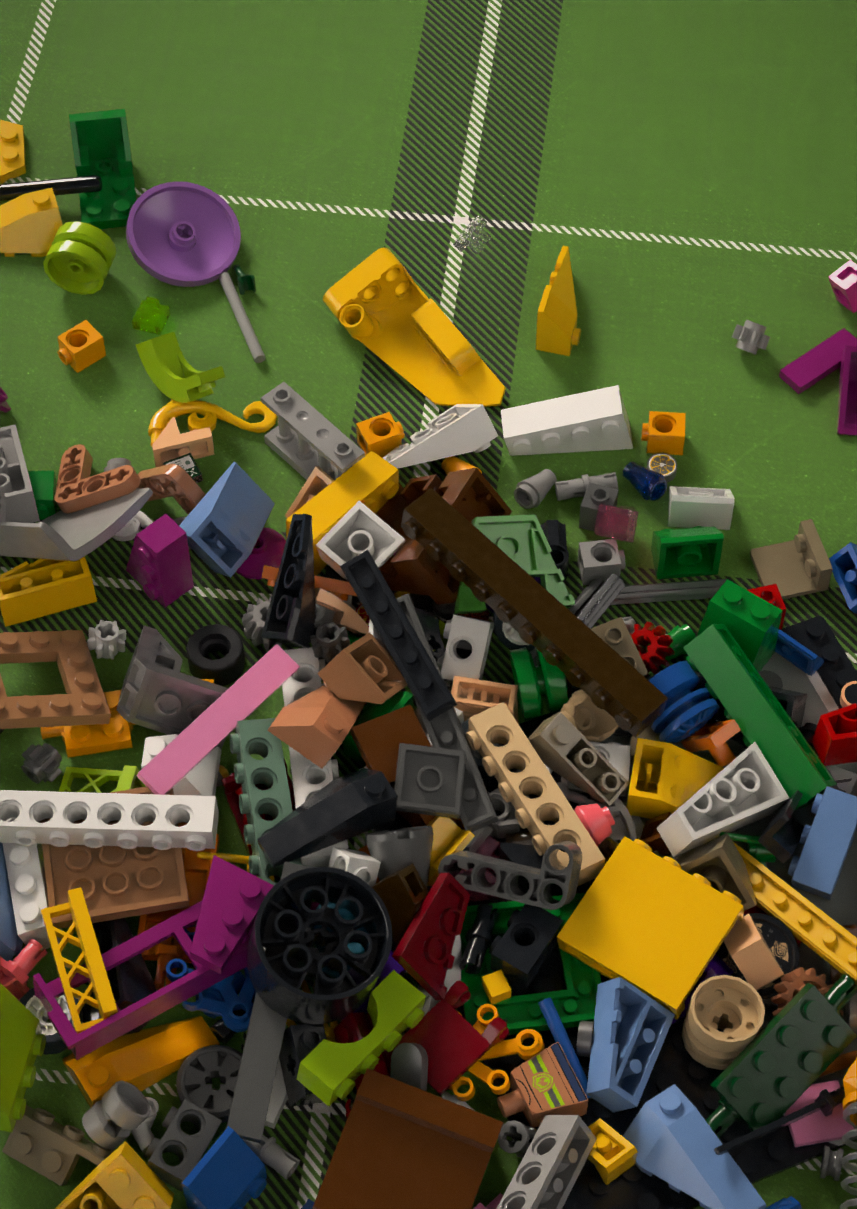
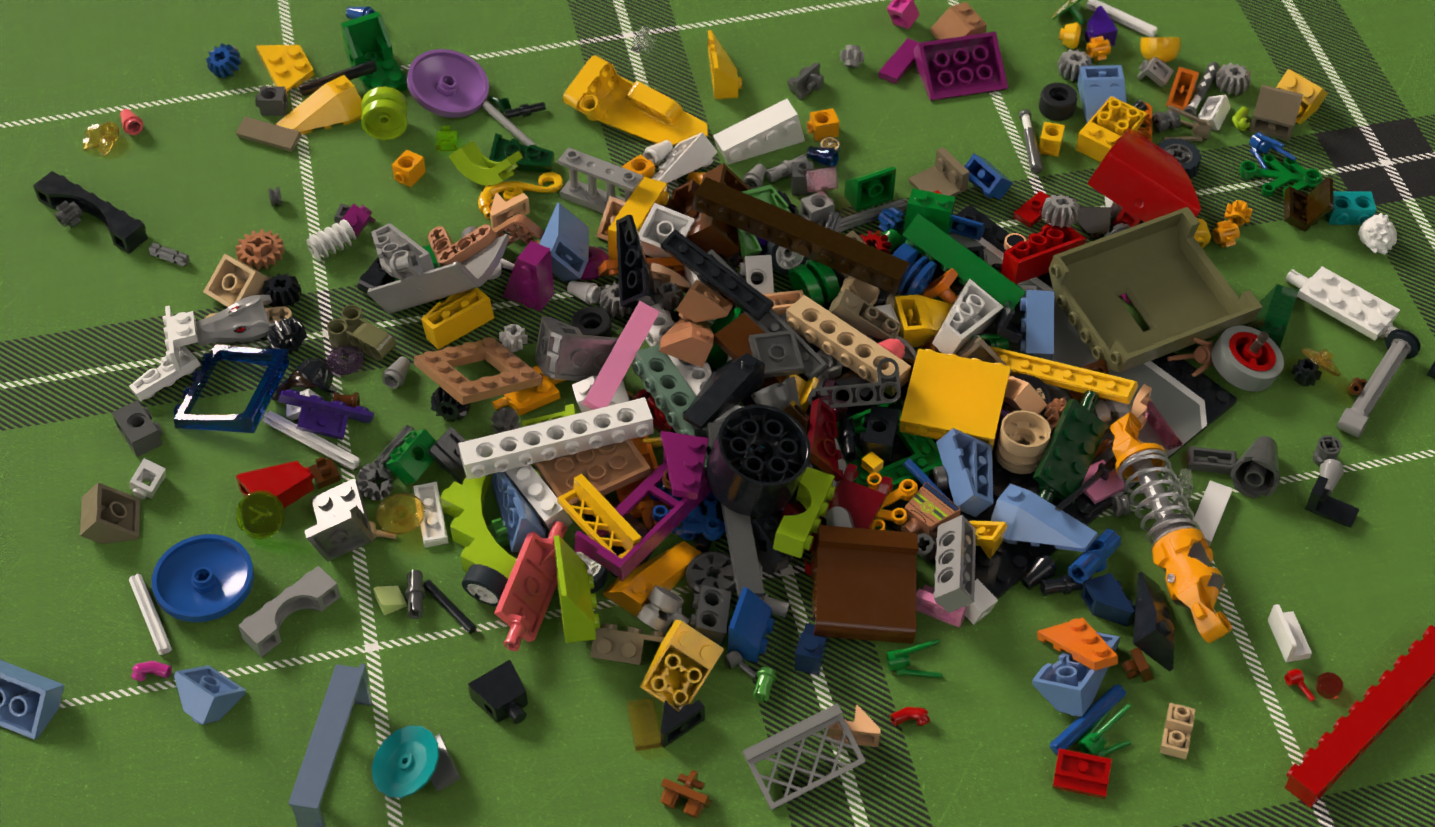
camera: 20 degrees left, 5 degrees down
(120, 99) = (355, 12): none -> blue cone
(231, 596) = (585, 291): none -> white cone
(242, 371) = (533, 157): none -> dark green wing
(271, 299) = (525, 110): none -> black bar
(417, 413) = (658, 152): none -> white cone
(672, 359) = (808, 80): none -> dark grey hips
(692, 608) = (891, 219): none -> blue gear
(700, 507) = (865, 162): white slope -> none

